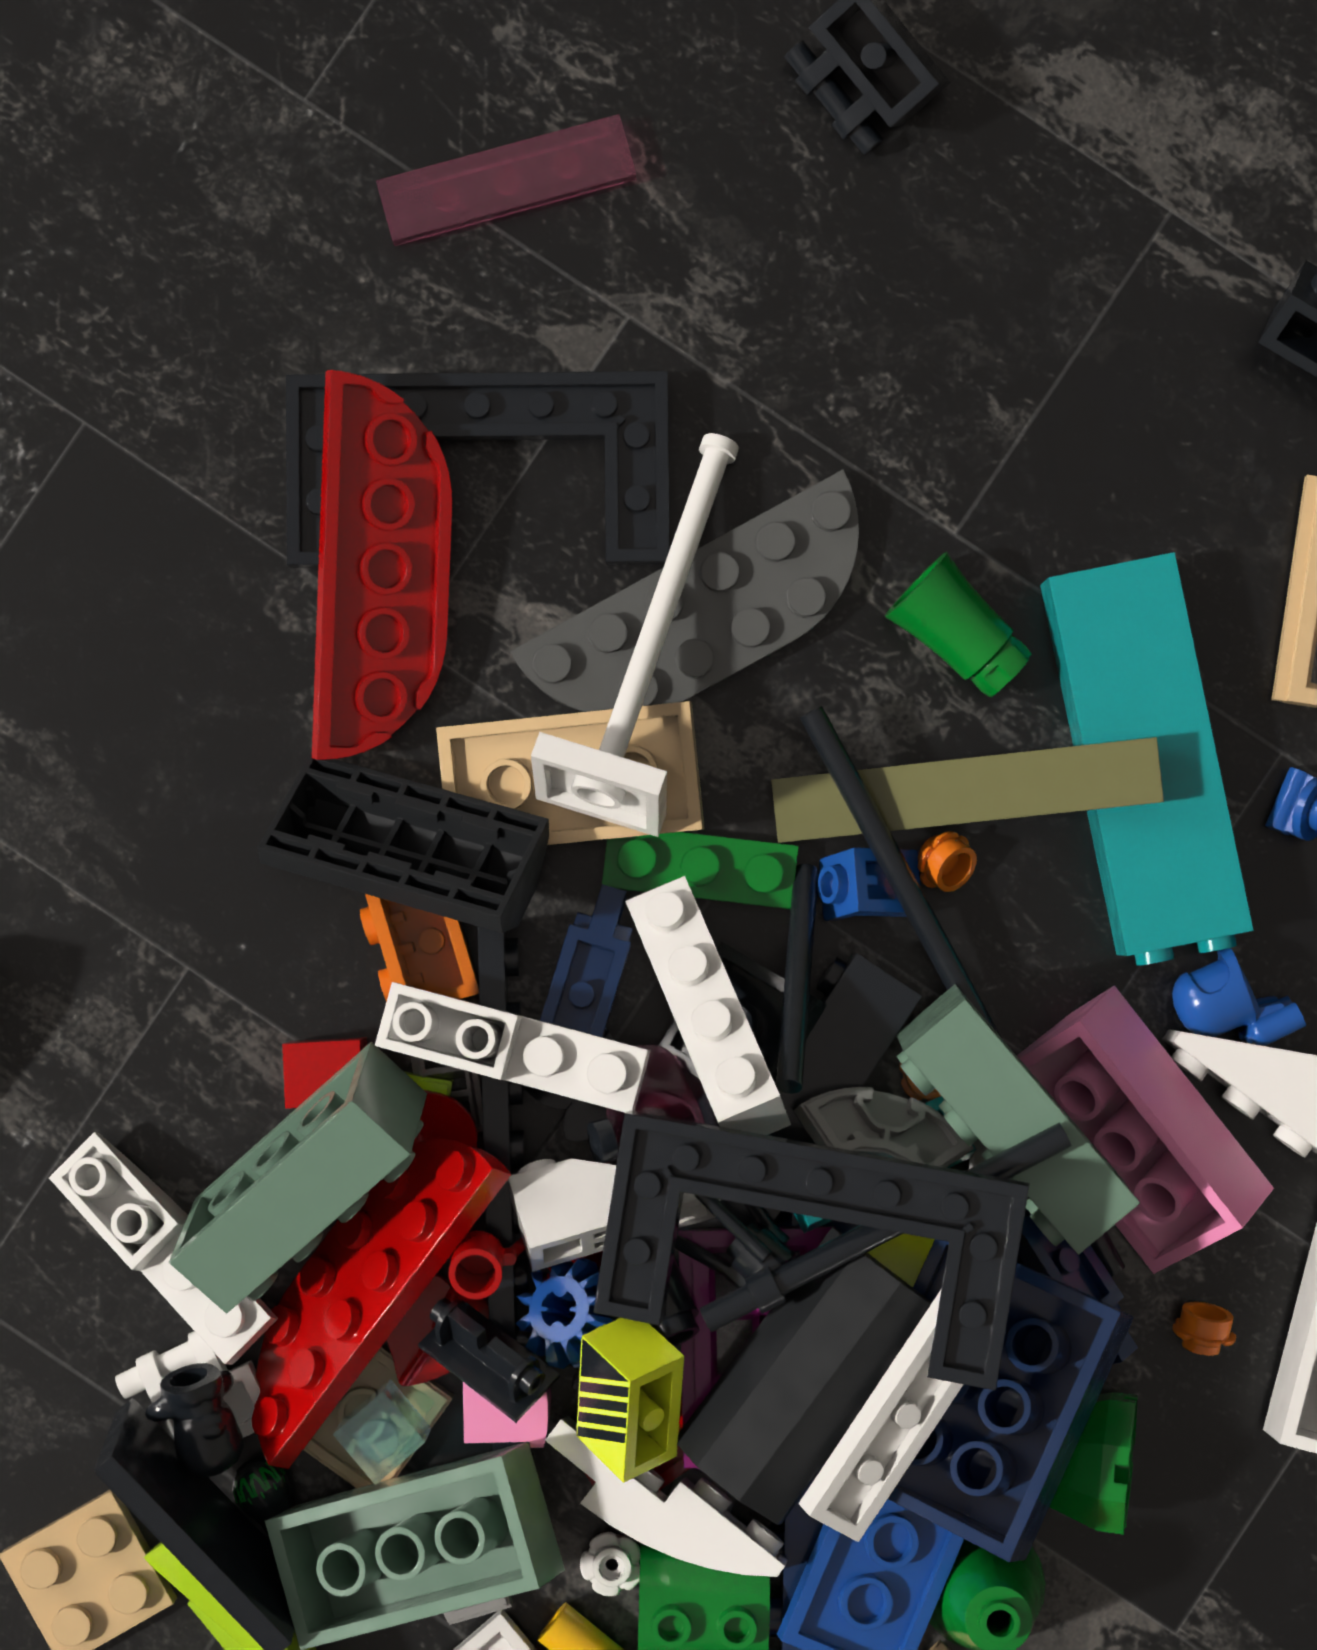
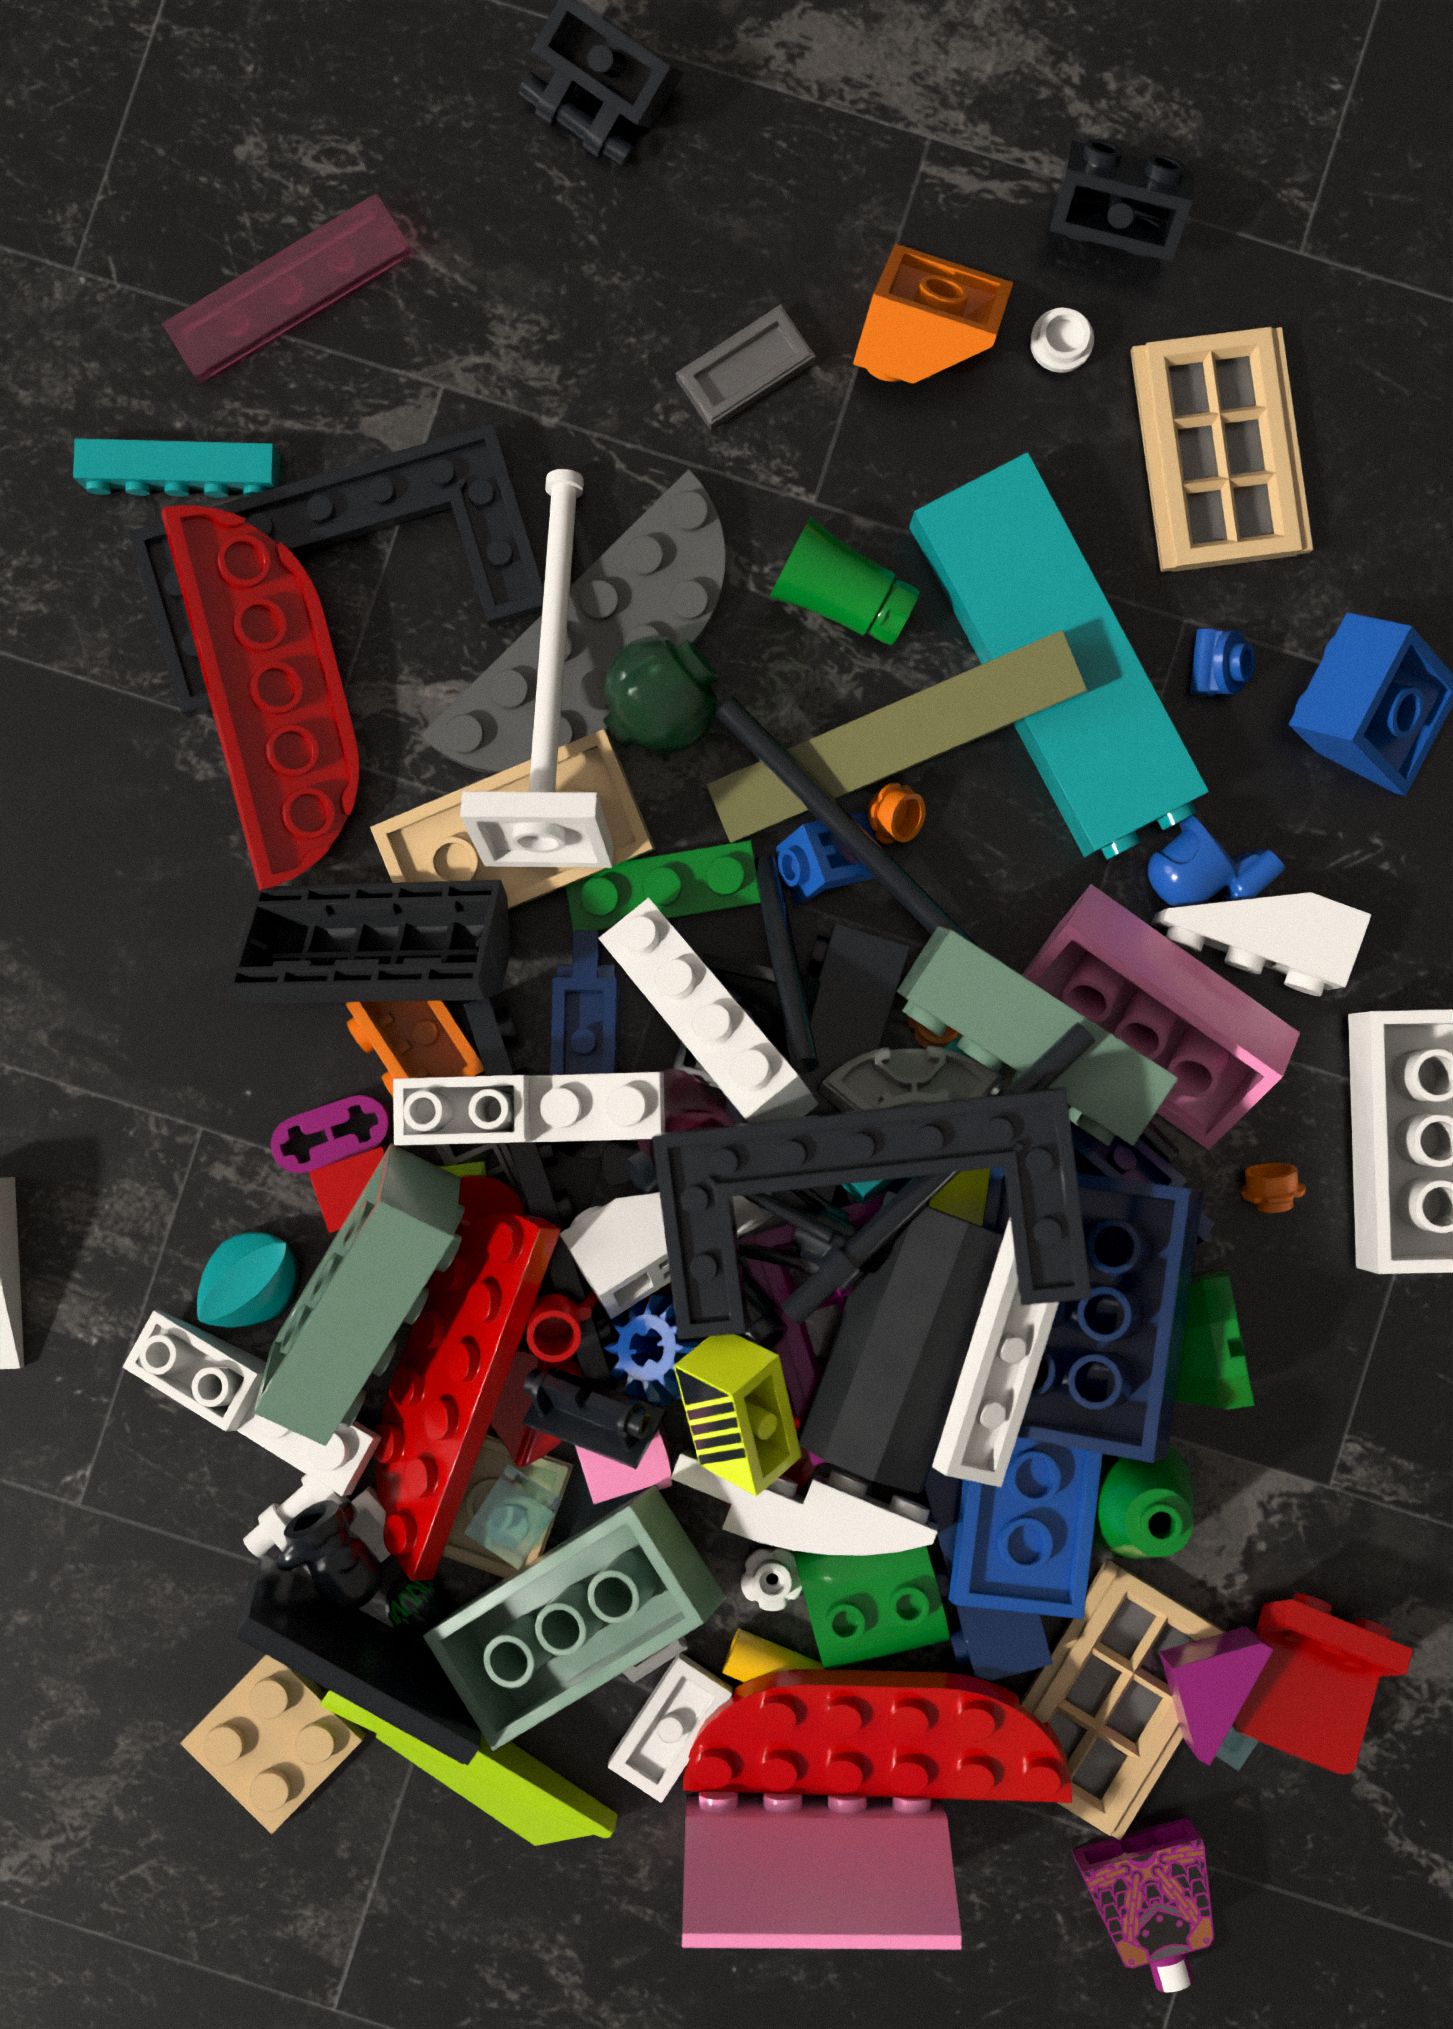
camera: 15 degrees left, 0 degrees up
(191, 1129) = (248, 1281): none -> teal piece
(312, 1027) = (326, 1119): none -> magenta beam
(349, 323) = (175, 467): none -> teal piece
(753, 683) = (660, 695): none -> clear green plant
(926, 385) = (745, 367): none -> flat silver tile
(1120, 390) = (928, 316): none -> orange slope
(1241, 447) = (1062, 340): none -> white plate

